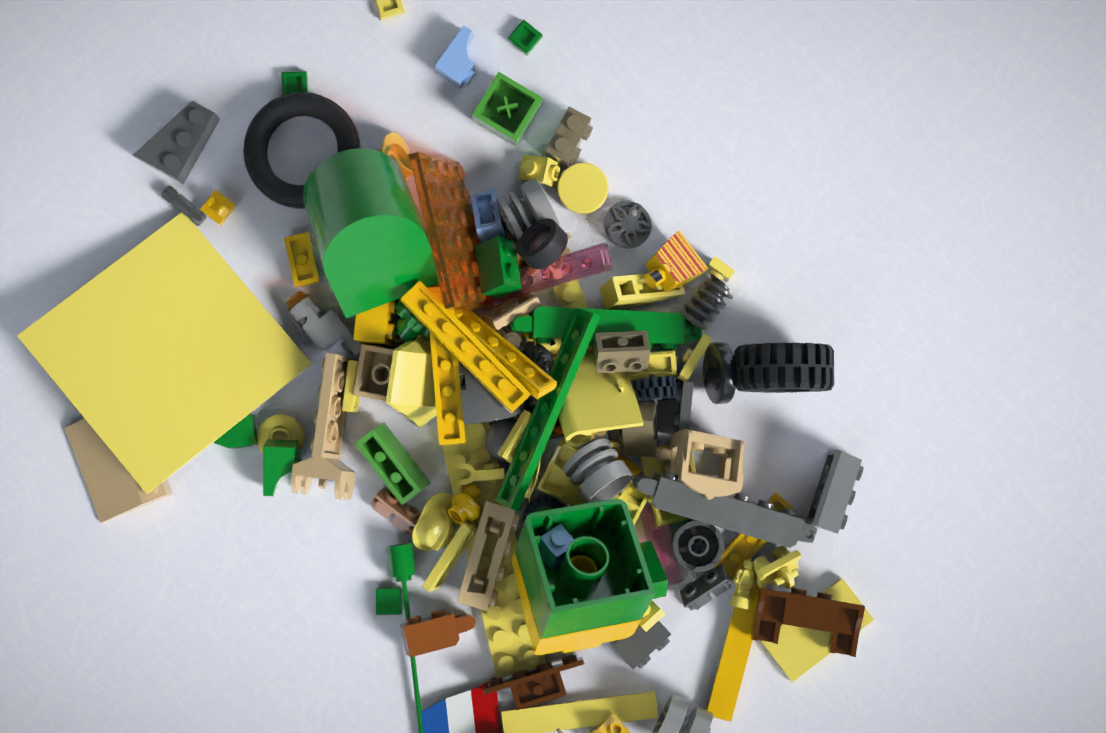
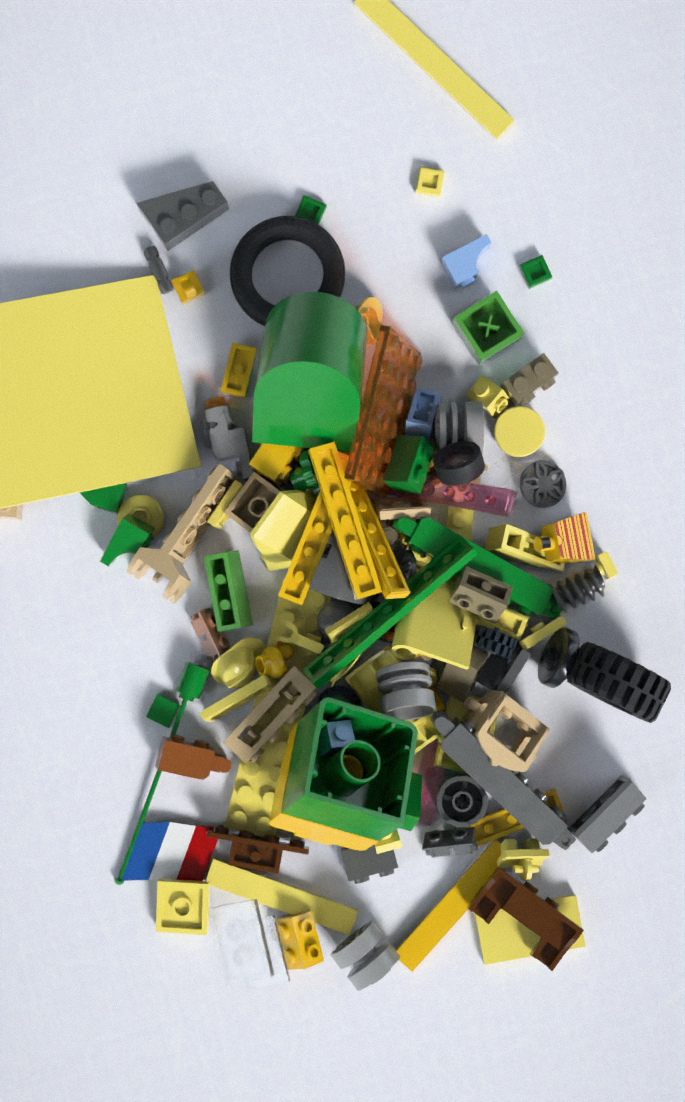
camera: 25 degrees right, 0 degrees up
(744, 580) = (486, 854): light yellow piece -> none

